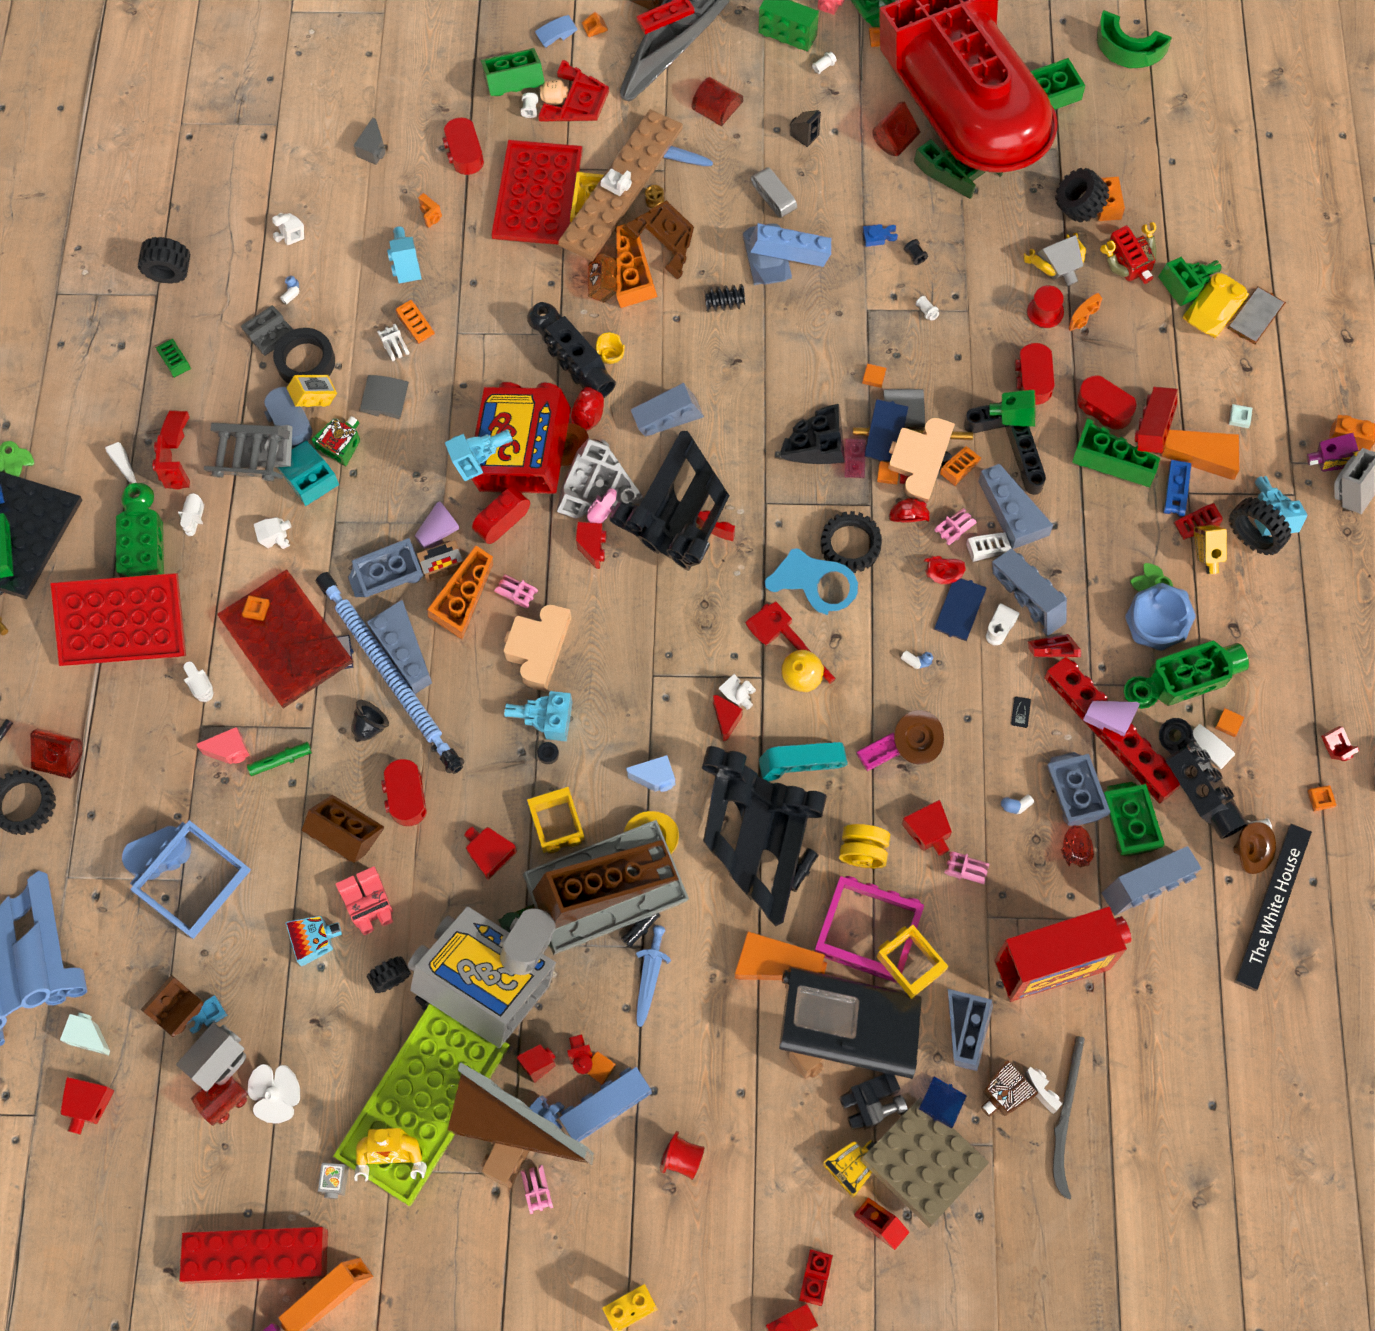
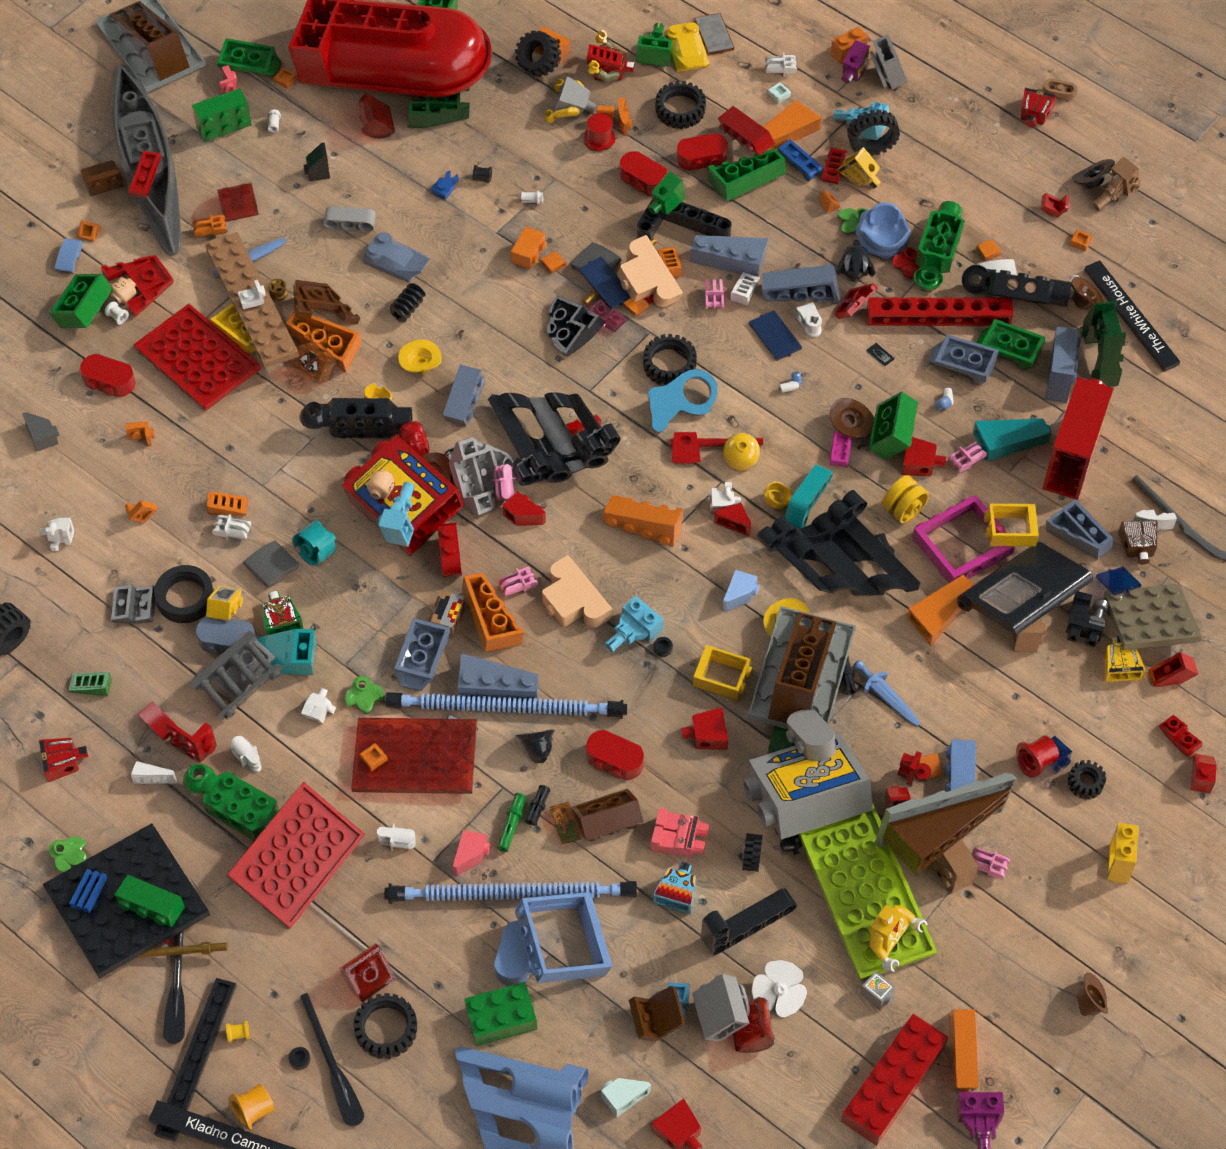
camera: 55 degrees left, 10 degrees down
(88, 388) = (60, 757): none -> red torso
(91, 882) = (500, 1014): none -> green brick
(214, 808) = (398, 893): none -> light blue hose
(284, 1004) = (722, 934): none -> black beam
(292, 289) = (114, 566): white arm -> none
(310, 767) = (537, 805): none -> black pin
(313, 559) = (364, 696): none -> bright green plate
(315, 794) = (565, 823): none -> clear orange tile
(353, 267) = (141, 511): none -> orange bracket
(404, 257) = (168, 468): medium azure brick -> none
(423, 412) = (314, 543): none -> teal brick
(436, 527) = (415, 599): lavender slope -> none
(500, 414) = (381, 484): none -> light nougat head
(661, 642) = (644, 519): none -> orange wedge
(672, 101) = (209, 226): none -> orange arm
(677, 348) = (419, 356): none -> yellow hat
(681, 1220) = (1088, 769): none -> black tyre
(705, 1172) = (1064, 754): none -> clear blue bracket
(780, 733) = (777, 495): none -> yellow hair
(790, 245) = (407, 234): medium blue brick -> none
(867, 344) = (528, 247): none -> orange brick
(909, 511) = (677, 313): red hat -> none
(938, 779) = (893, 425): none -> green brick
(944, 570) = (741, 322): red hat -> none
(1023, 890) = (1011, 436): none -> teal slope
(1073, 296) = (608, 110): none -> orange tile
(1077, 847) = (1004, 387): clear red hat -> none
(1098, 616) = (855, 262): none -> black piece
(1111, 715) = (934, 300): lavender slope -> none
(1142, 660) = (906, 261): none -> red plate
(1152, 329) = (680, 119): none -> black tyre
(1154, 546) = (828, 201): none -> orange slope
(1194, 912) = (1103, 327): none -> dark green wedge
(1272, 393) = (781, 64): none -> white arm

